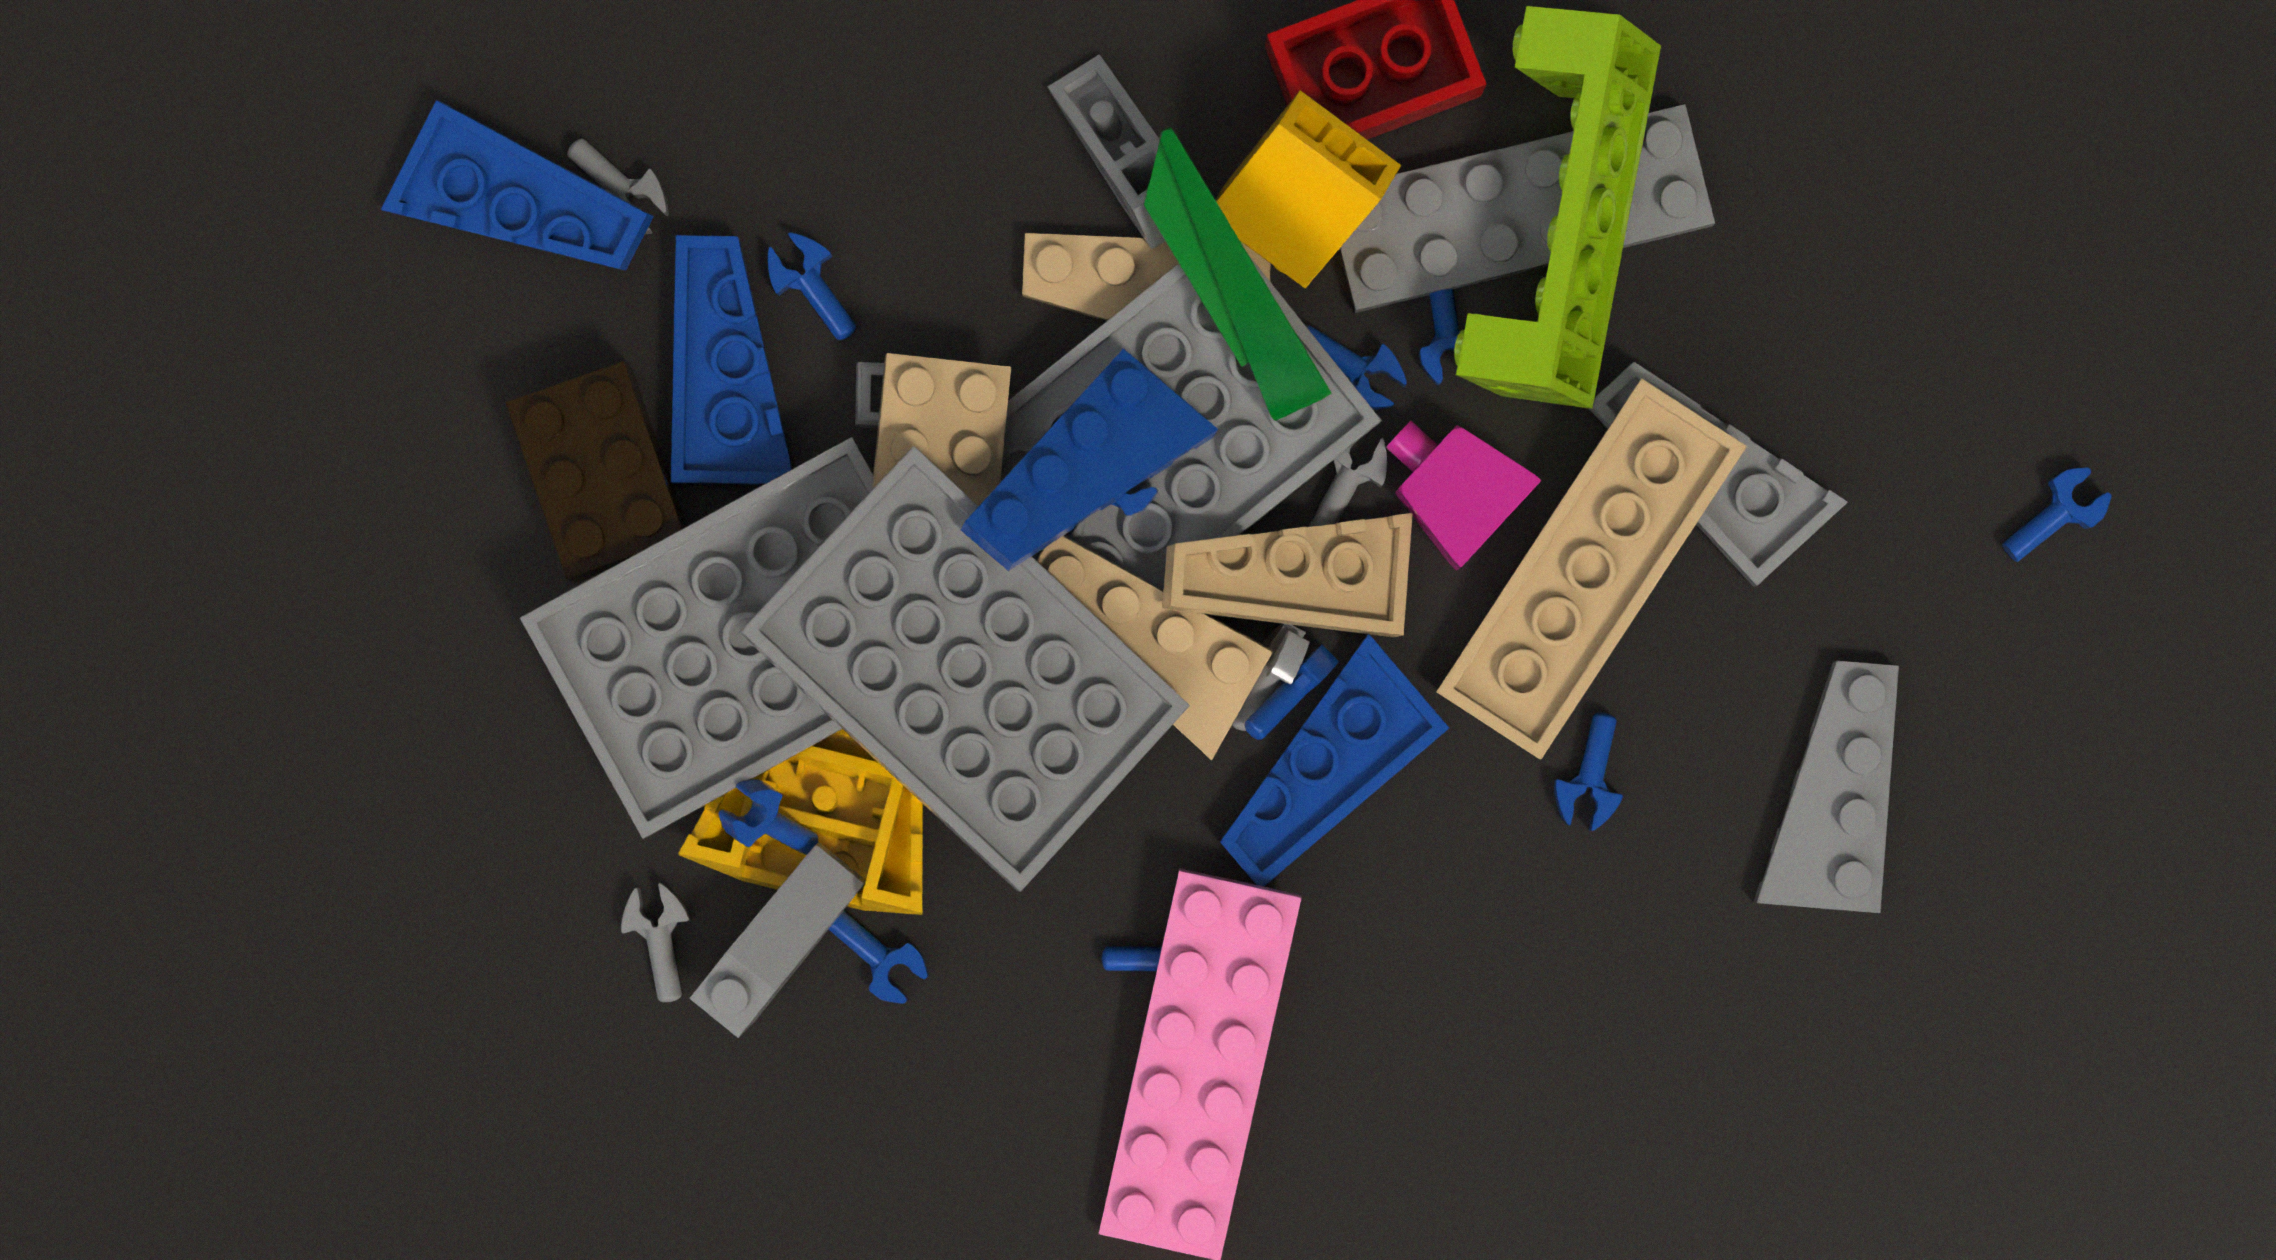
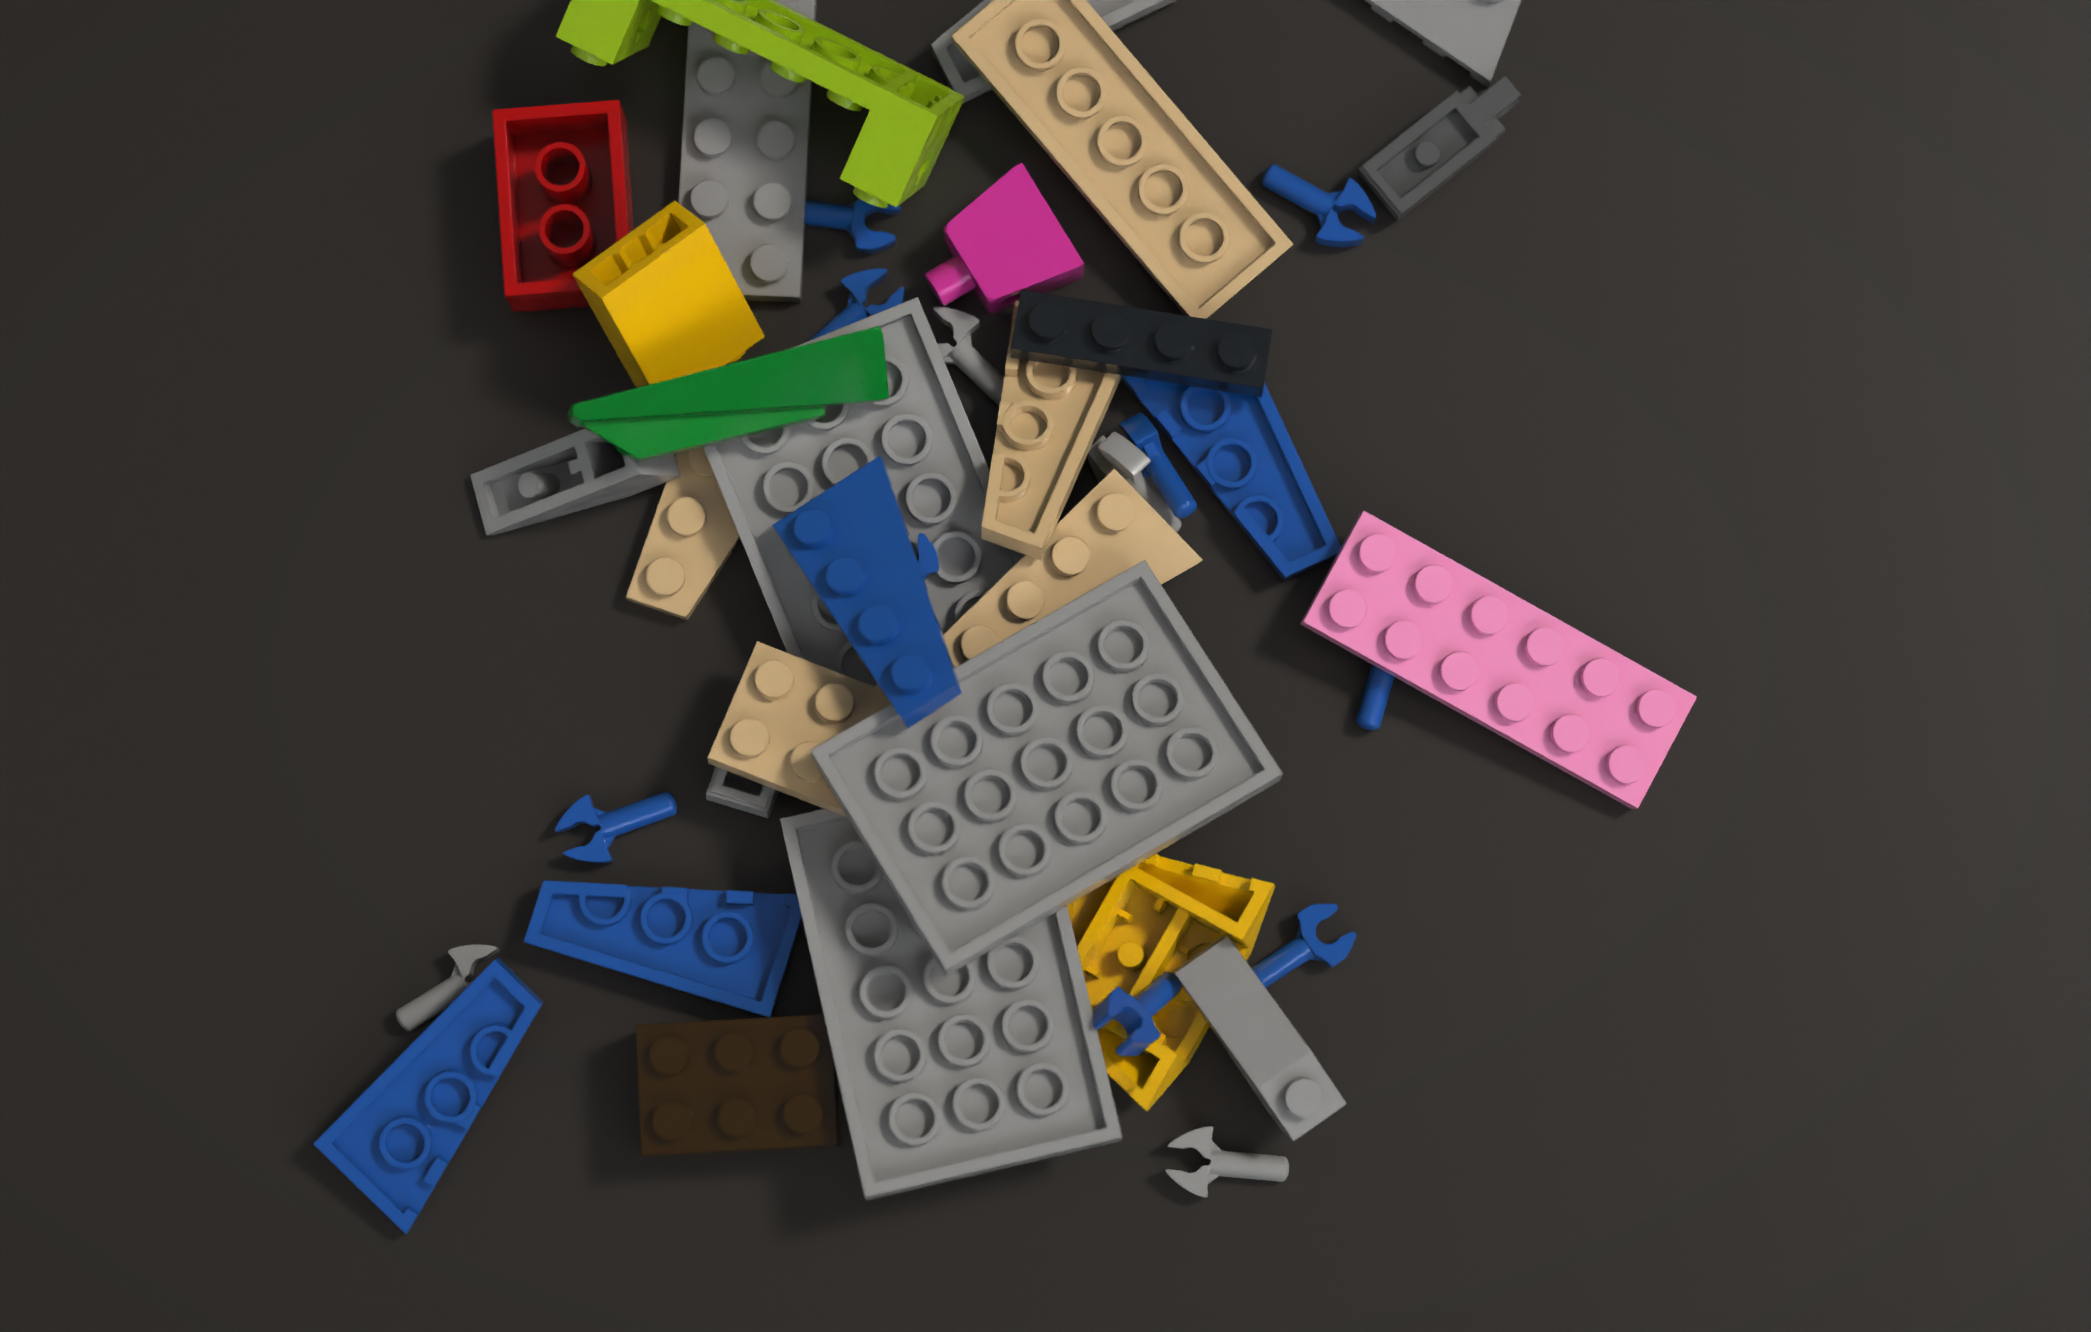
camera: 75 degrees left, 5 degrees down
(1401, 643) = (1141, 343): none -> black plate
(1678, 871) = (1438, 146): none -> dark grey hinge

